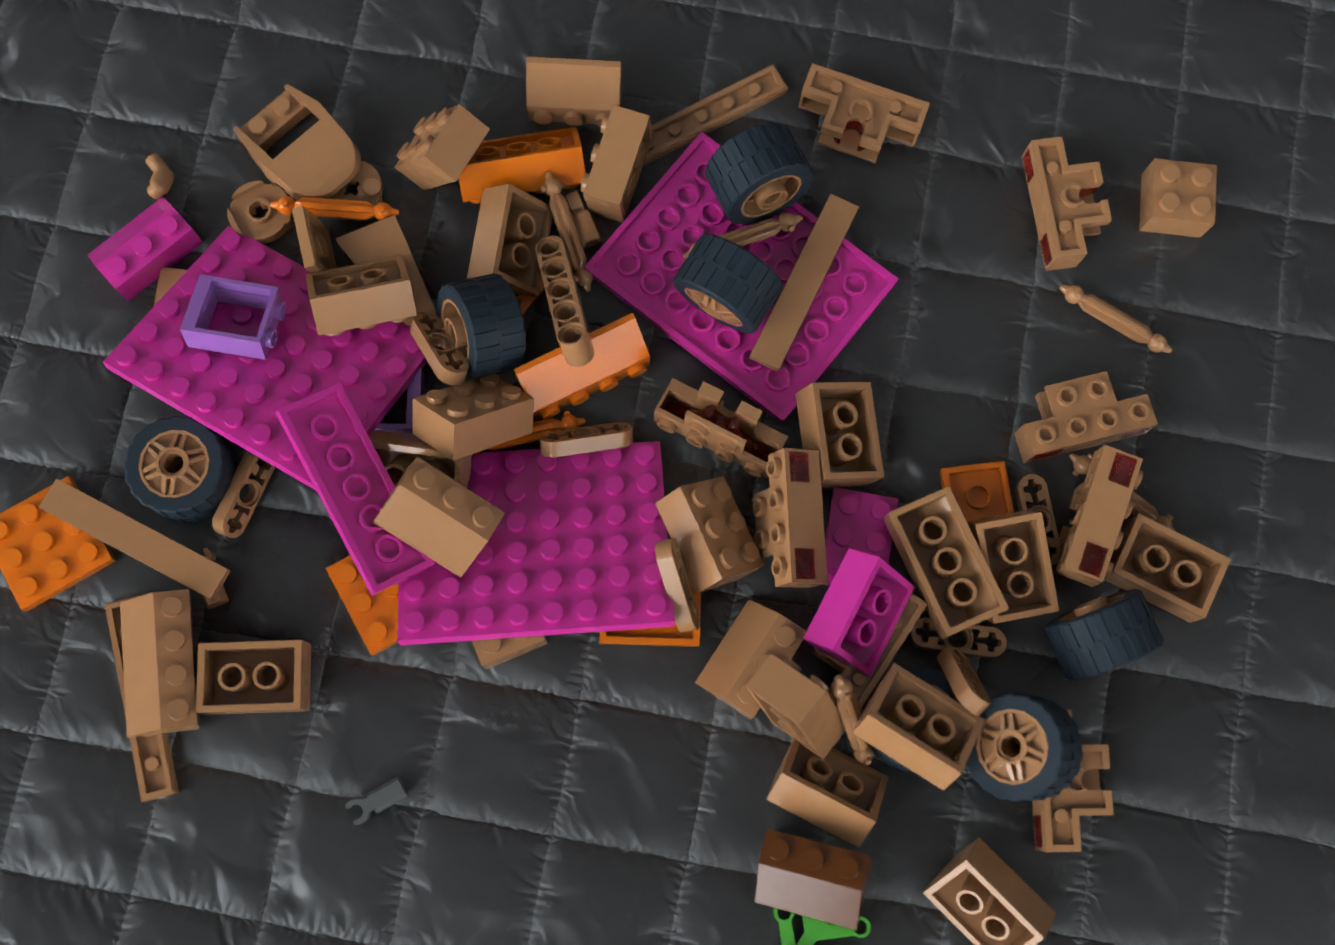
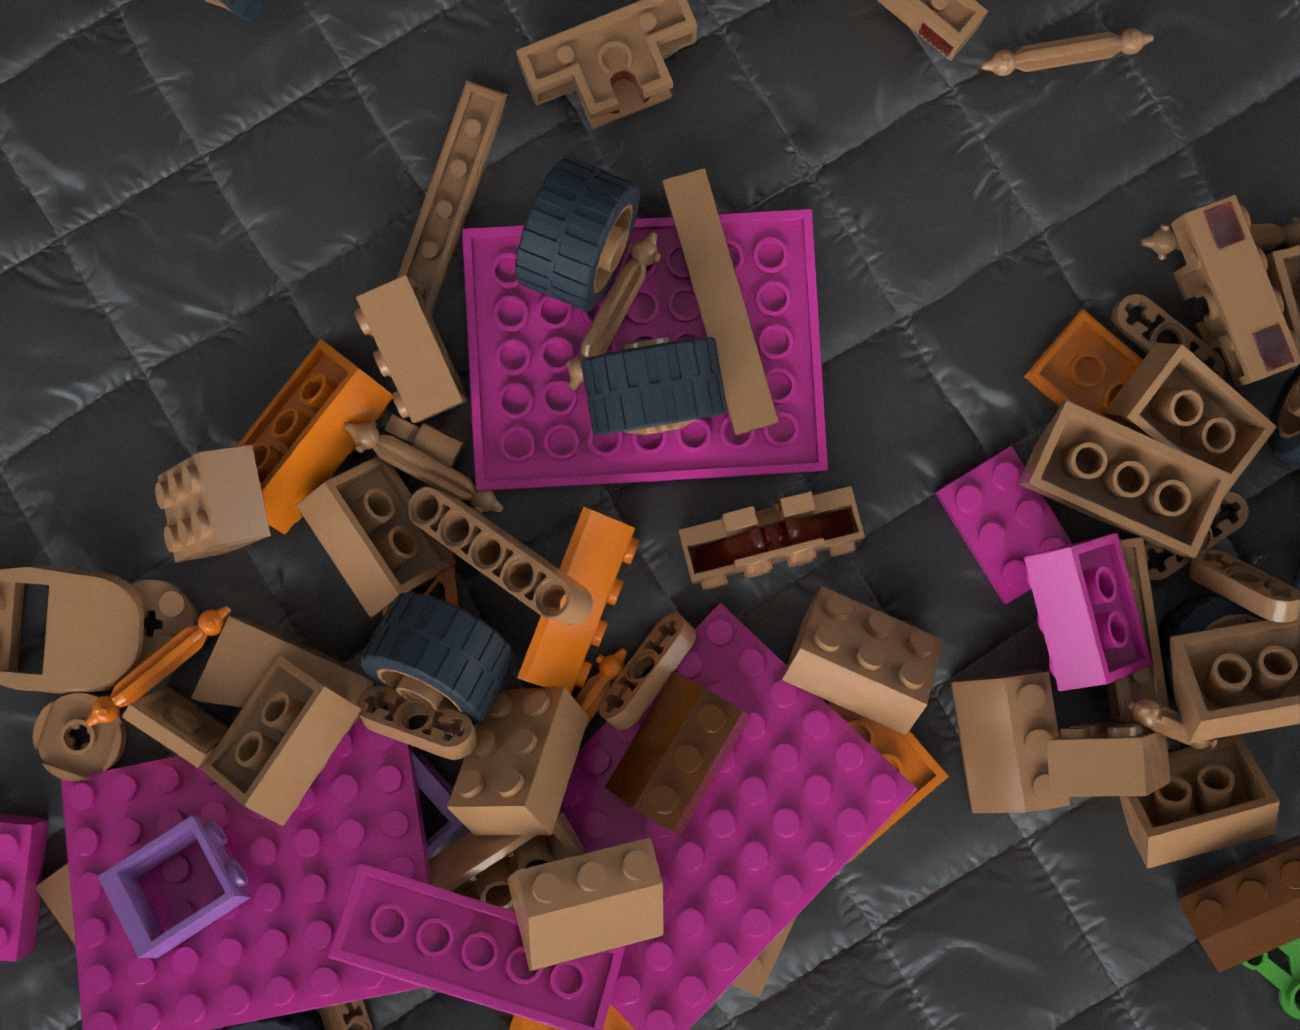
camera: 40 degrees left, 10 degrees up
(563, 492) = (677, 752): none -> reddish brown slope
(571, 90) = (288, 309): medium nougat slope -> none
(677, 584) = (881, 745): medium nougat beam -> none
(792, 519) = (935, 573): medium nougat piece -> none
(843, 427) = (901, 438): medium nougat brick -> none
(1082, 416) = (1125, 193): medium nougat piece -> none

